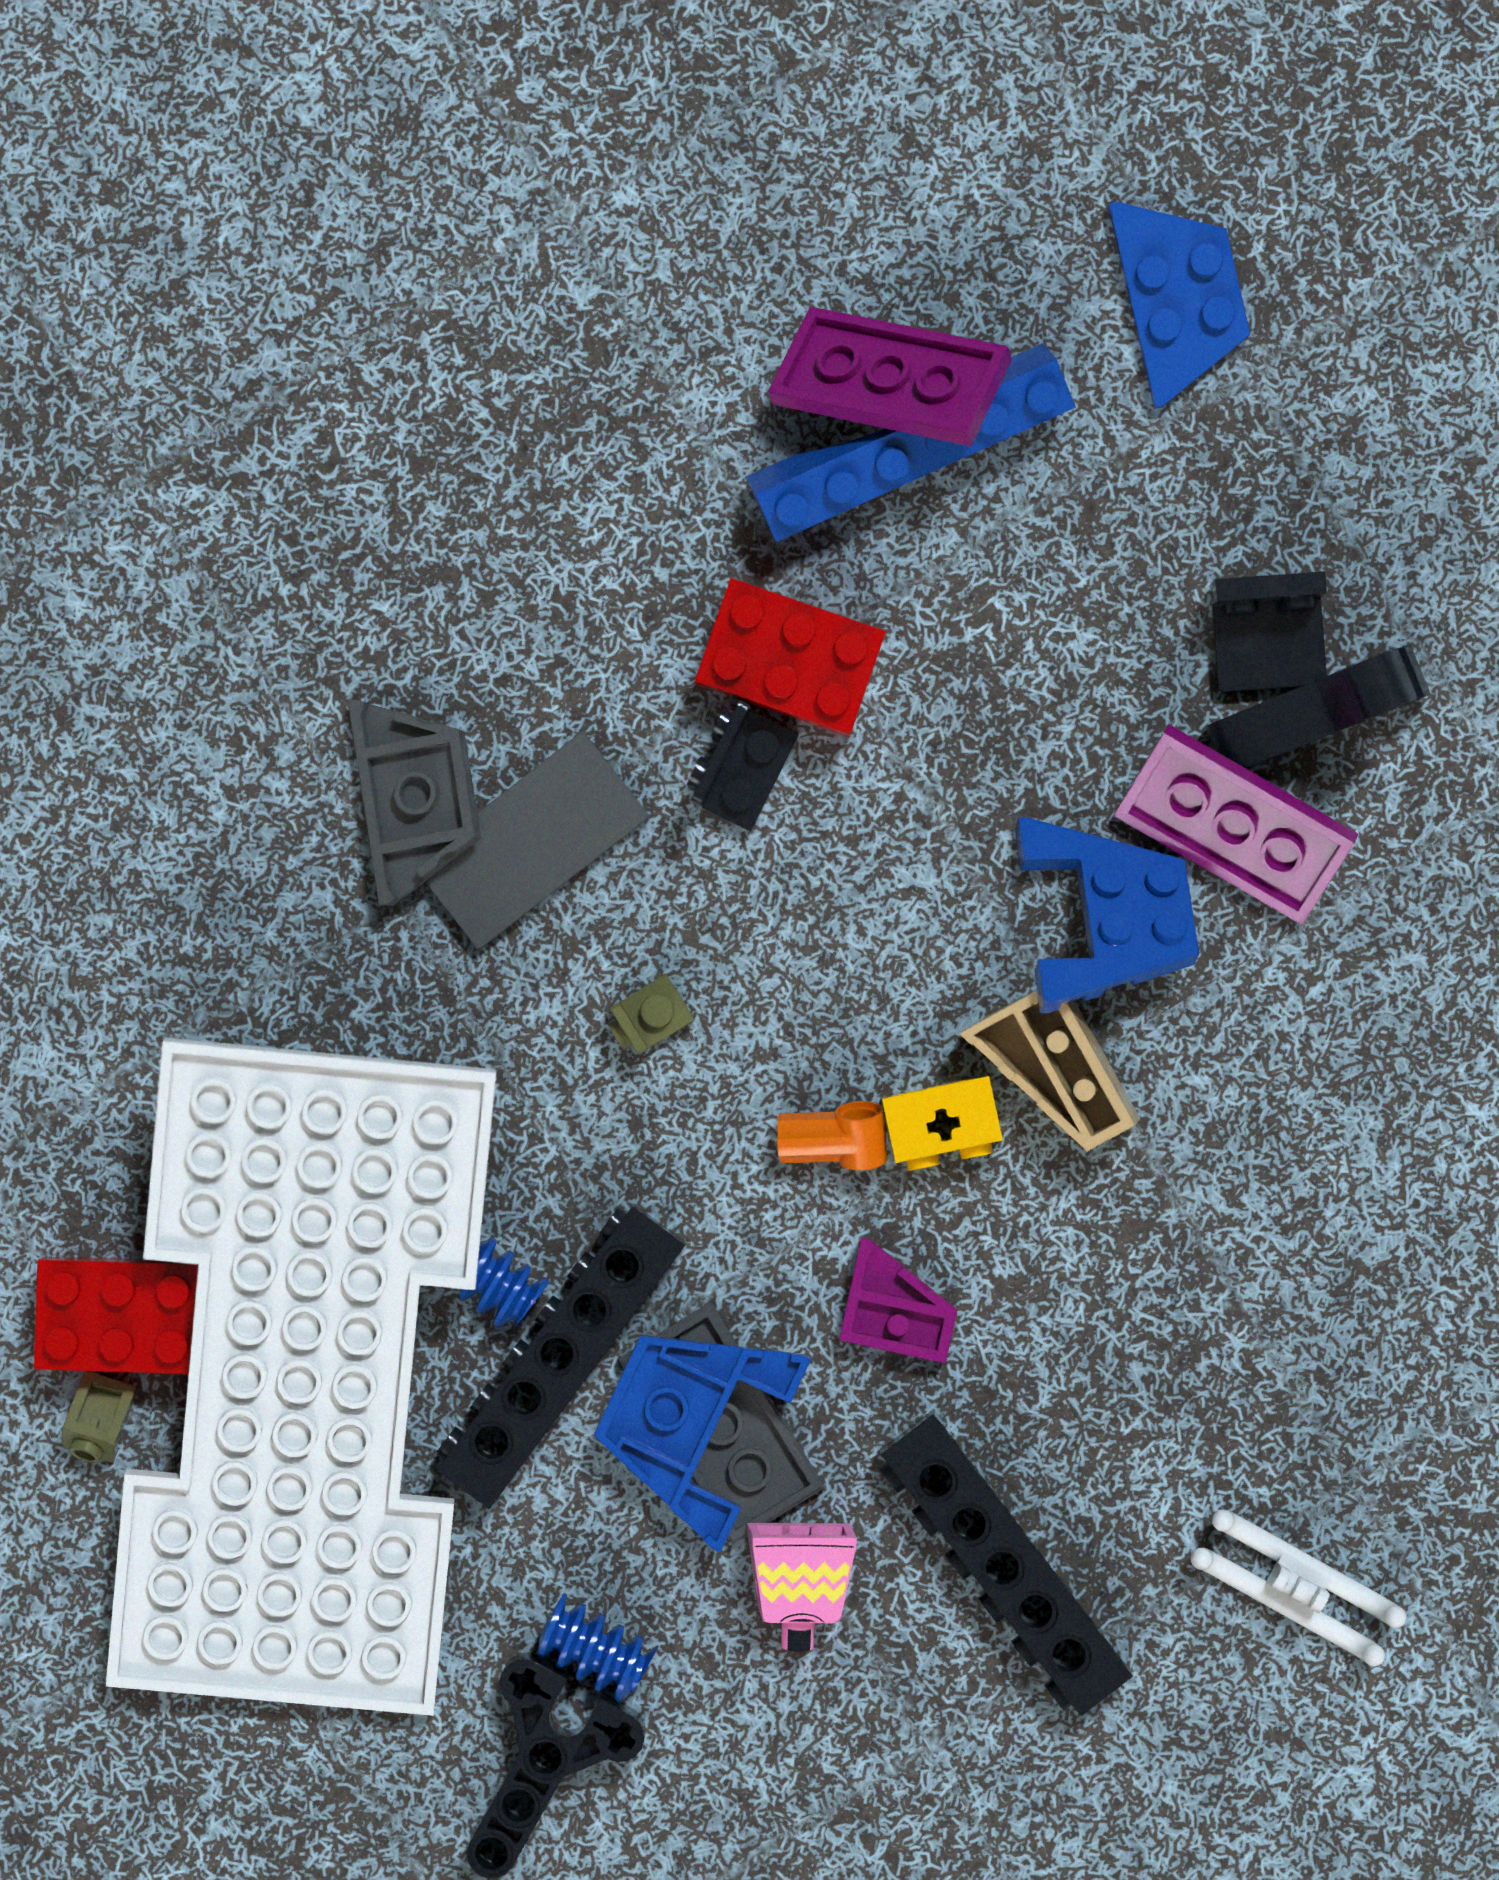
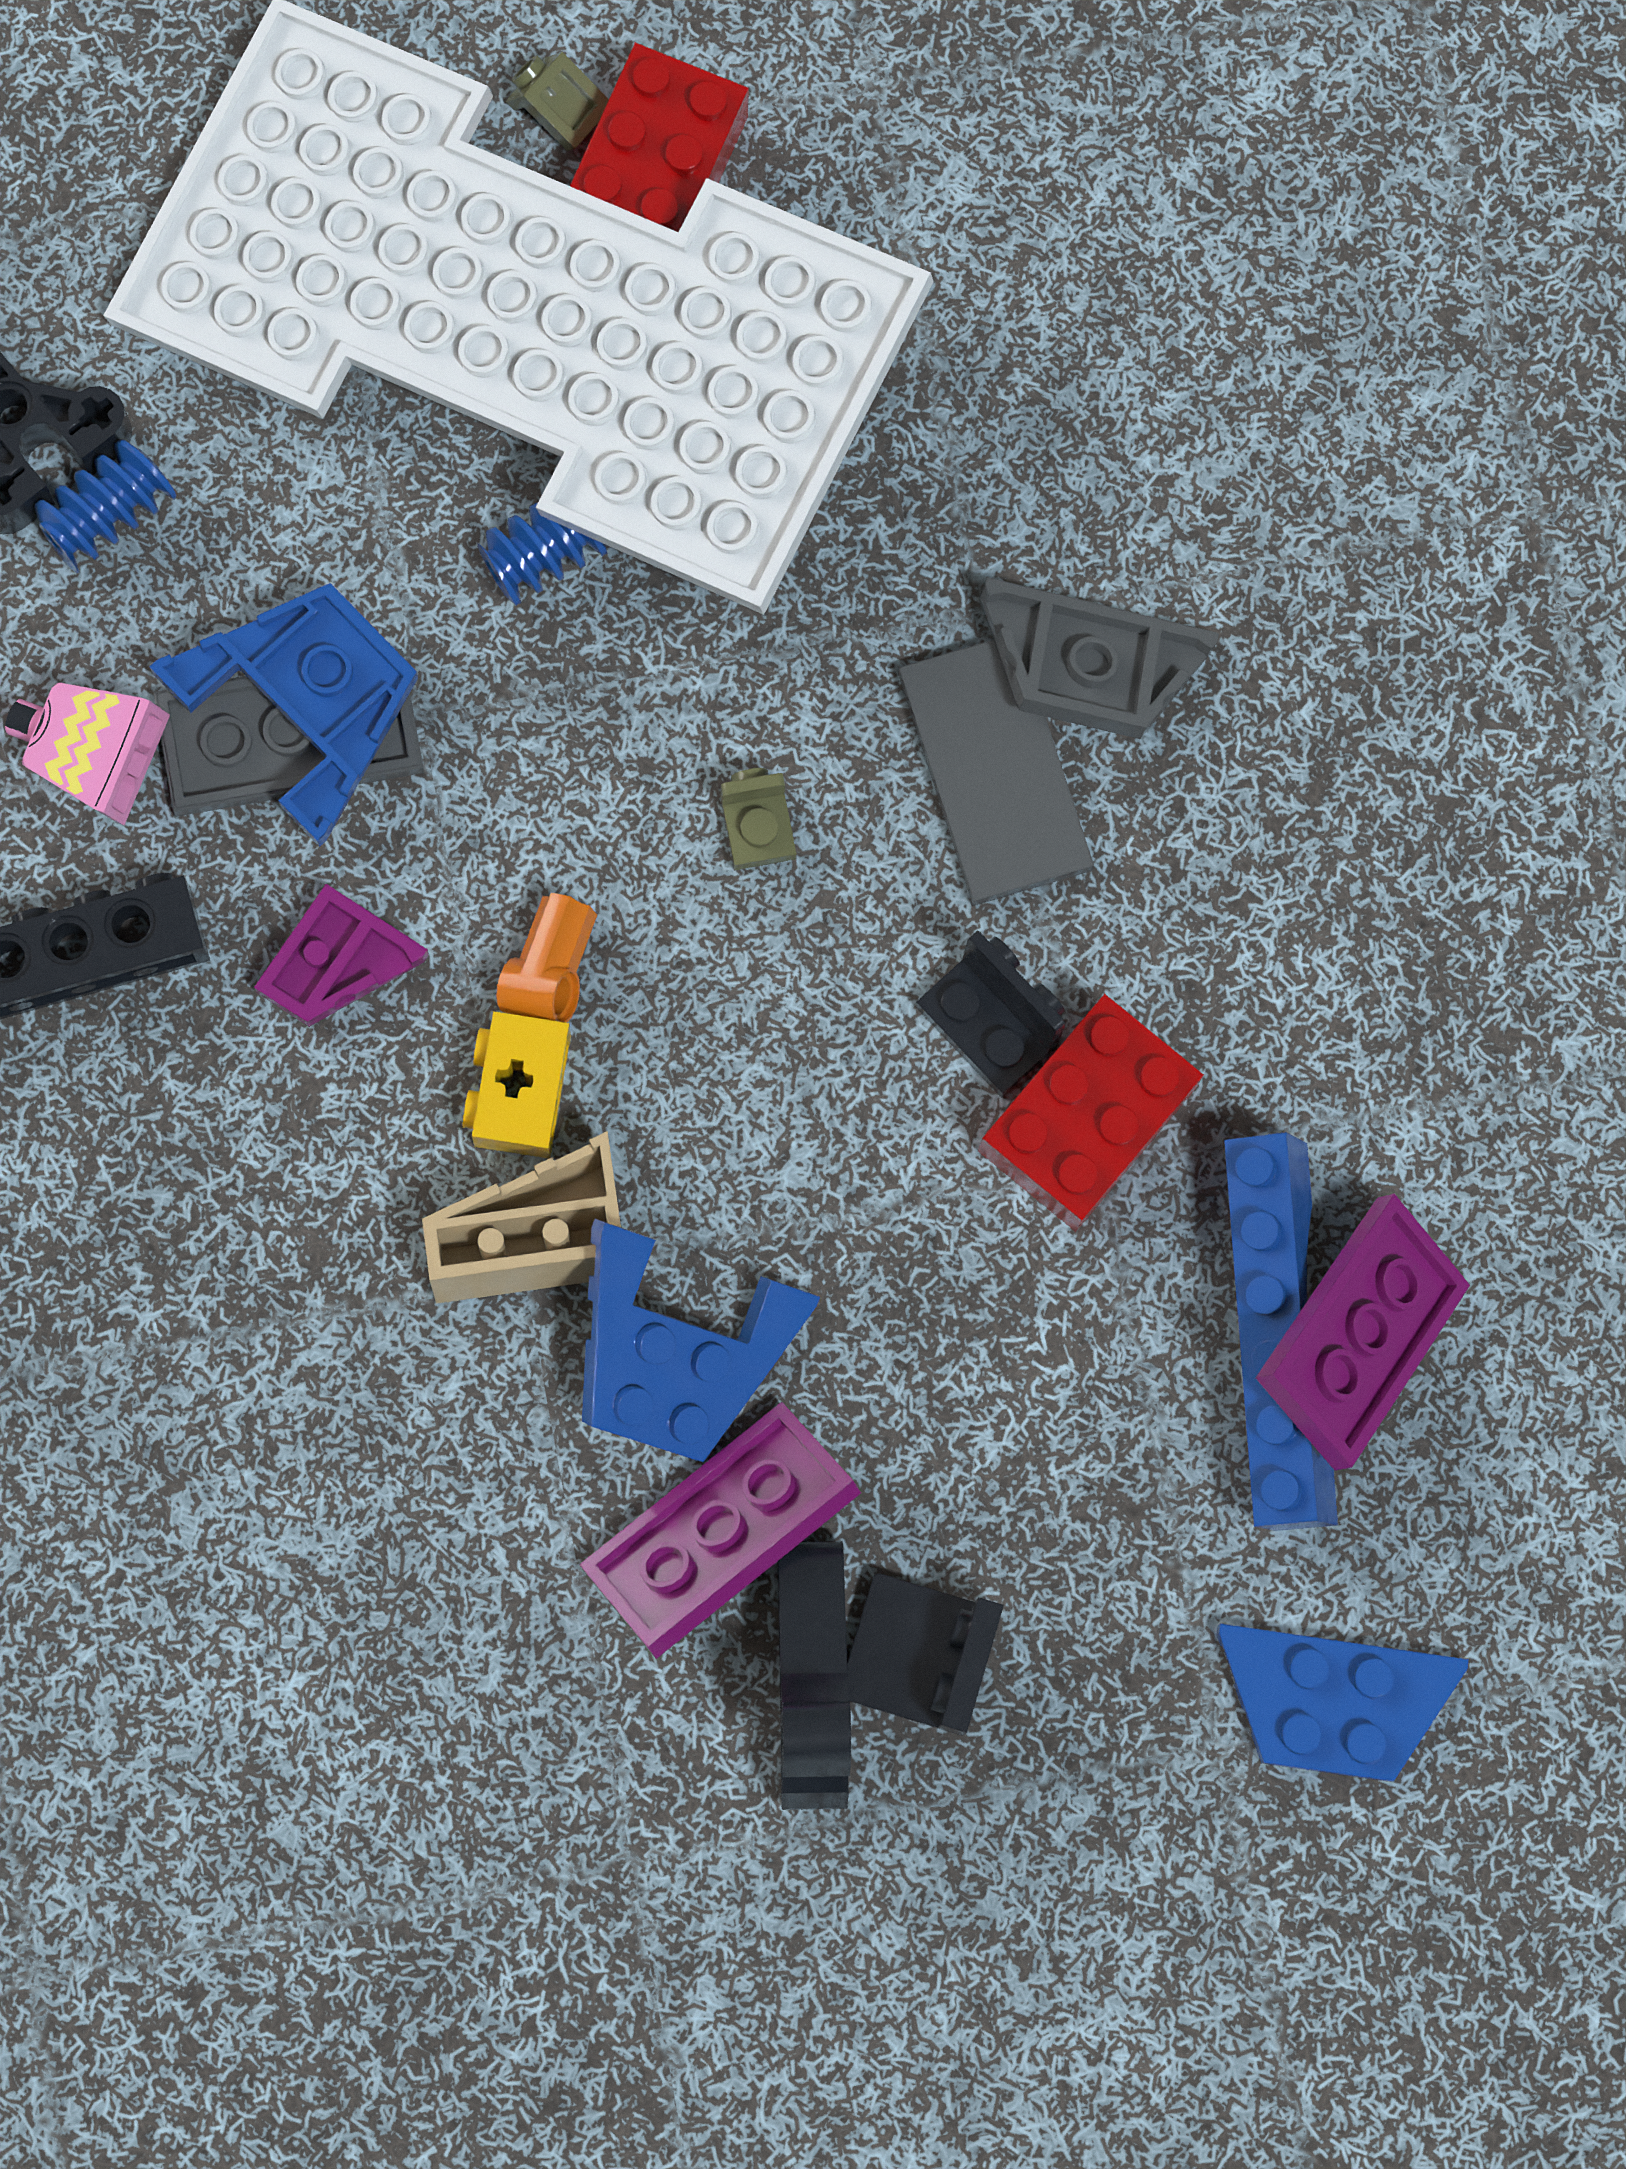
camera: 100 degrees right, 10 degrees down
(487, 1475) = (357, 449): black brick -> none

